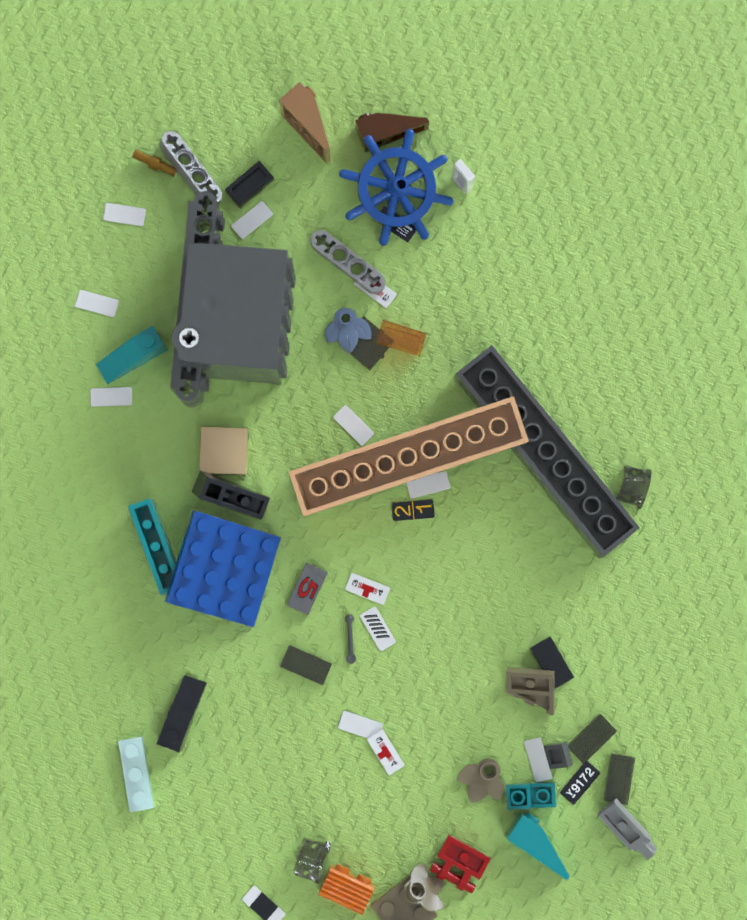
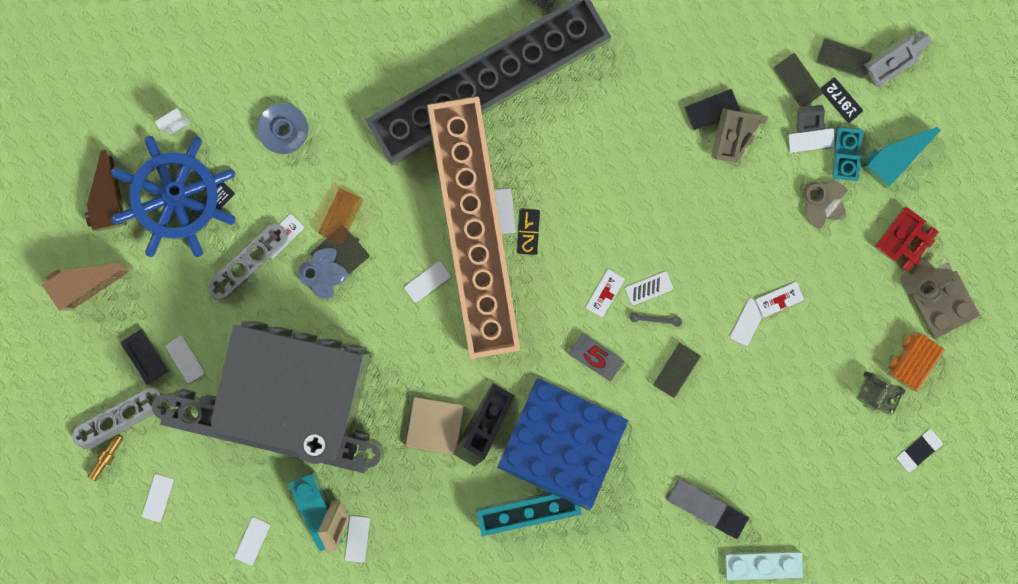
camera: 75 degrees left, 5 degrees up
(120, 371) = (333, 525): none -> tan tile
(480, 267) = (270, 124): none -> sand blue dish

